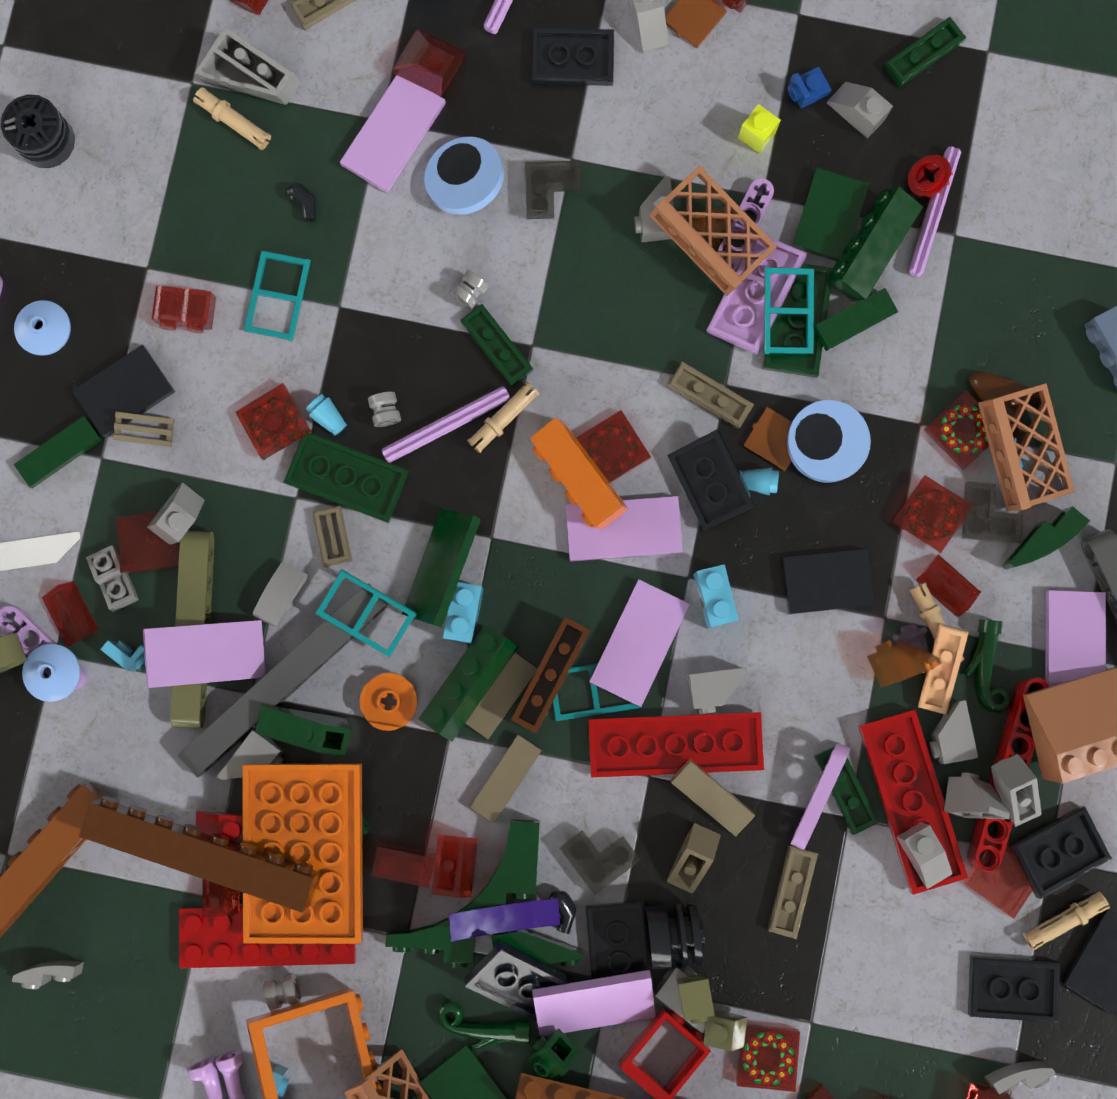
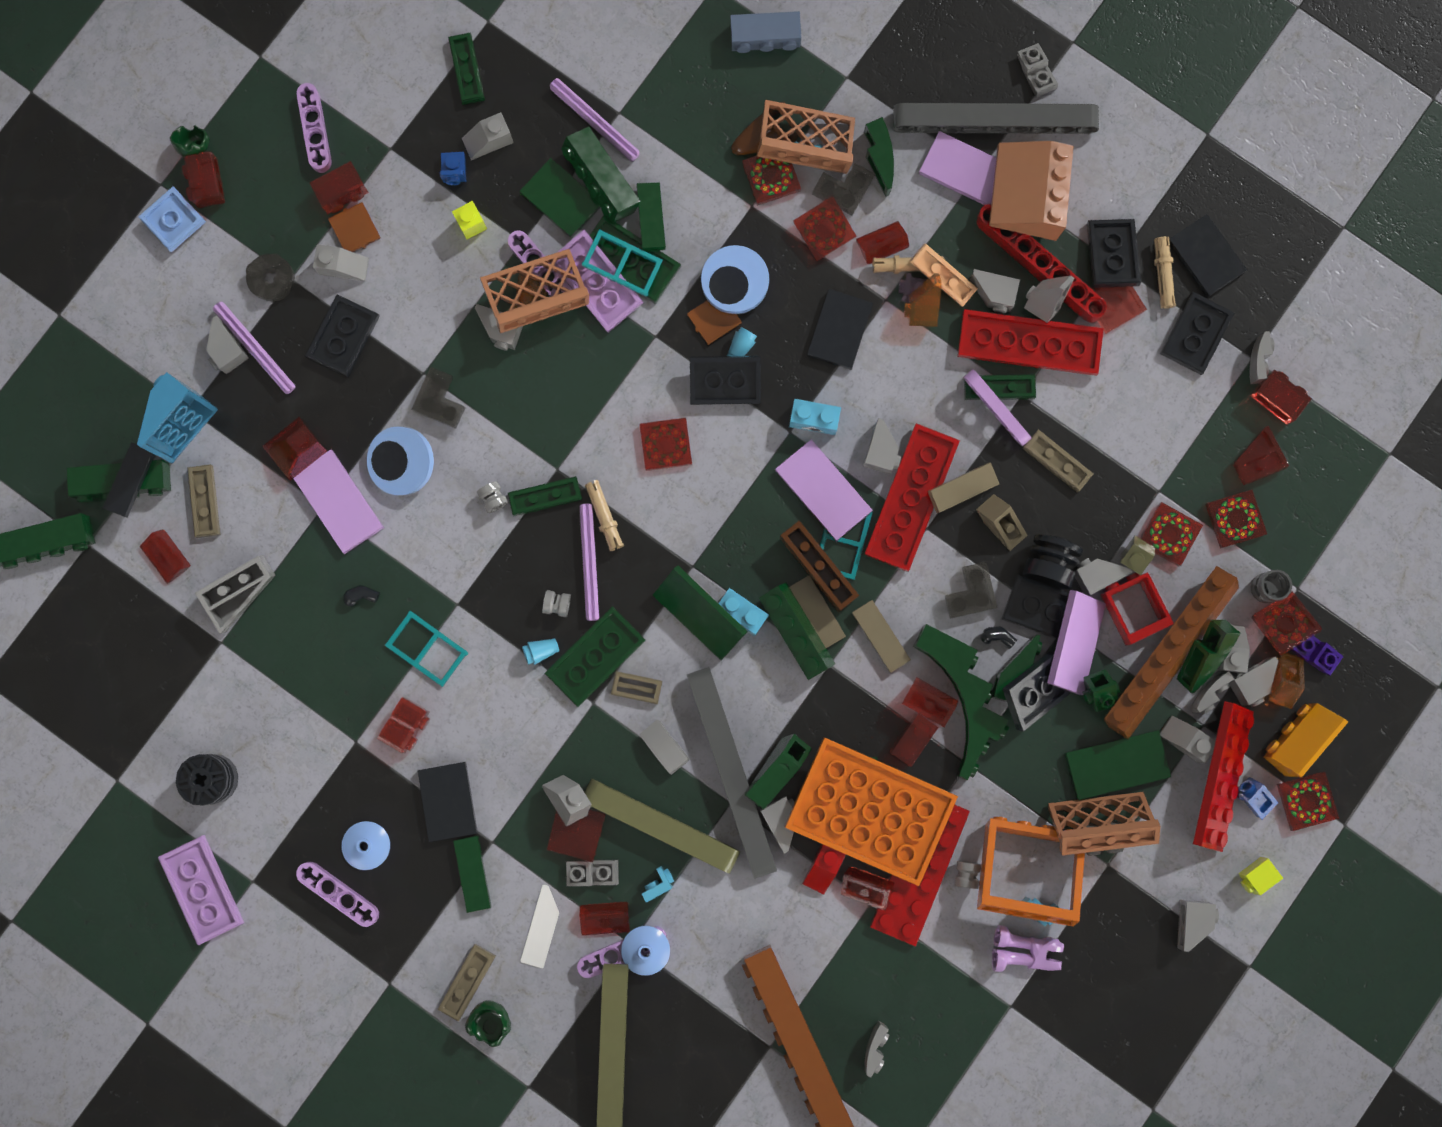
camera: 65 degrees left, 0 degrees up
(118, 426) = (504, 784): dark tan tile -> none
(200, 854) = (838, 888): reddish brown brick -> none
(203, 653) = (685, 823): lavender tile -> none
(223, 112) = (259, 626): tan pin -> none
(273, 421) = (526, 694): clear red tile -> none
(355, 631) = (720, 699): teal window -> none
(376, 712) = (797, 697): orange plate -> none
(487, 1032) = (1063, 734): dark green plant -> none
(504, 919) = (986, 680): dark purple sticker -> none
(578, 474) = (674, 477): orange brick -> none
(644, 530) = (731, 463): lavender tile -> none
(695, 998) = (1105, 565): olive brick -> none
(710, 395) = (658, 351): dark tan tile -> none
(918, 179) = (561, 119): red gear -> none
(925, 854) = (1073, 350): light grey slope -> none
(984, 660) = (950, 242): dark green plant -> none
(1017, 789) = (1055, 262): light grey slope -> none

